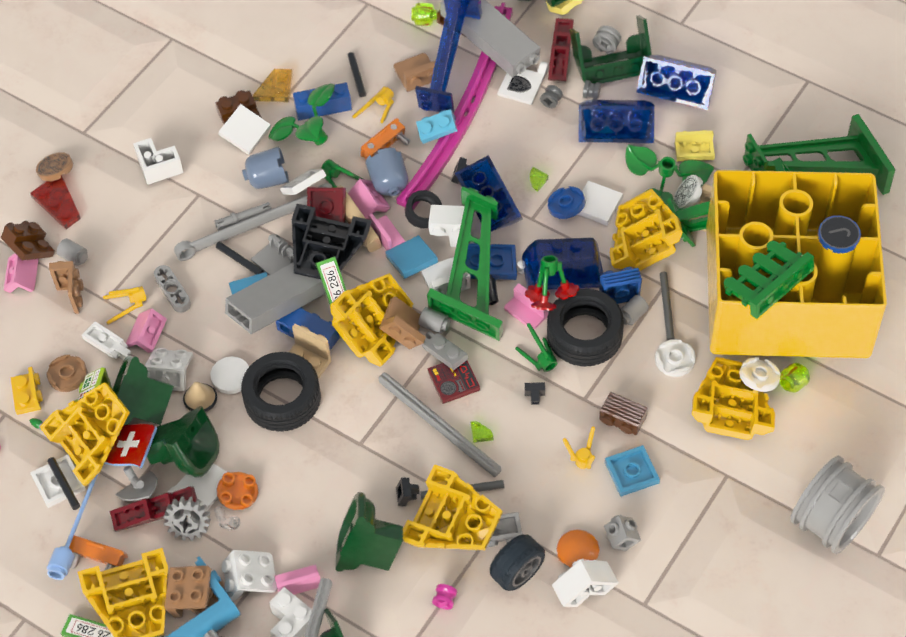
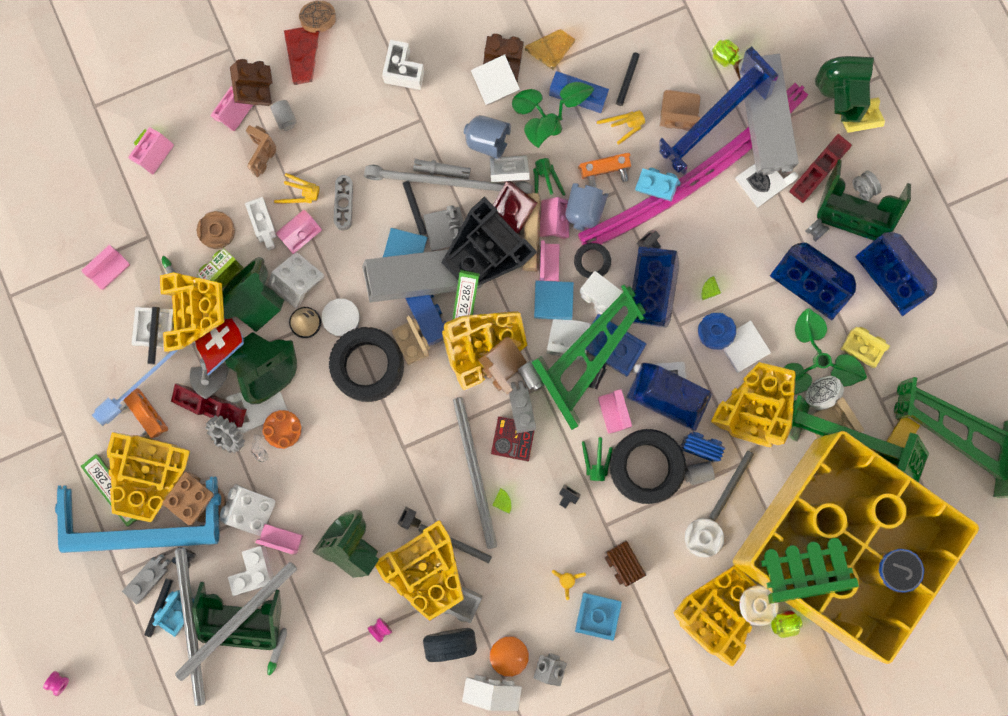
camera: 30 degrees right, 25 degrees up
(26, 392) = (174, 228): yellow bracket -> none
(539, 293) = (631, 412): plant -> none
(551, 96) = (778, 213): dark grey wheel -> none

